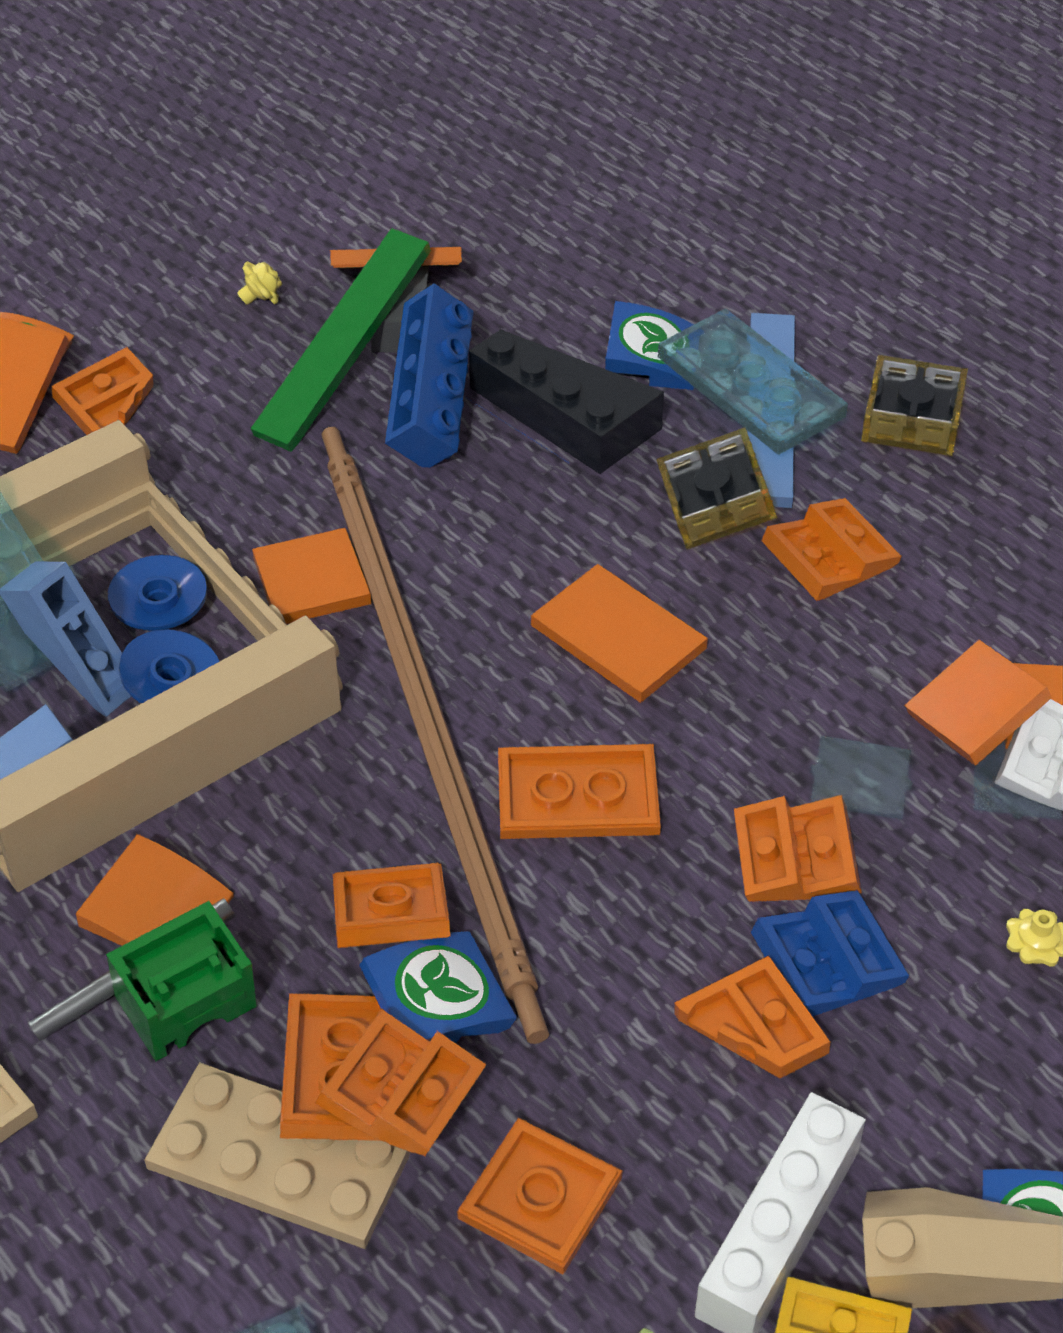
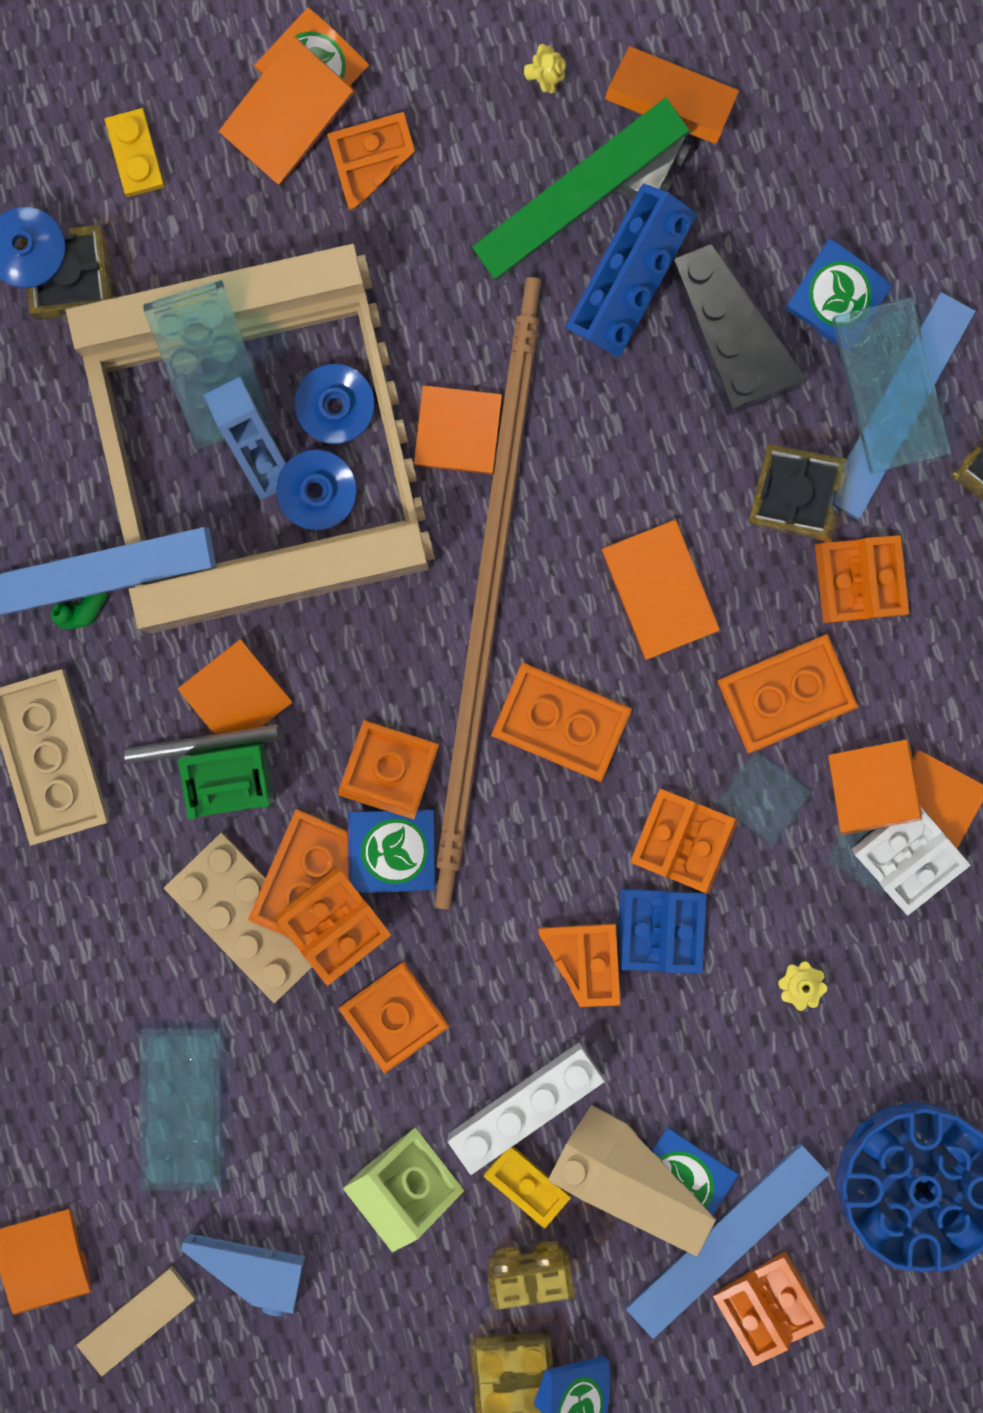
camera: 25 degrees right, 40 degrees up
(819, 672) = (787, 694): none -> orange tile

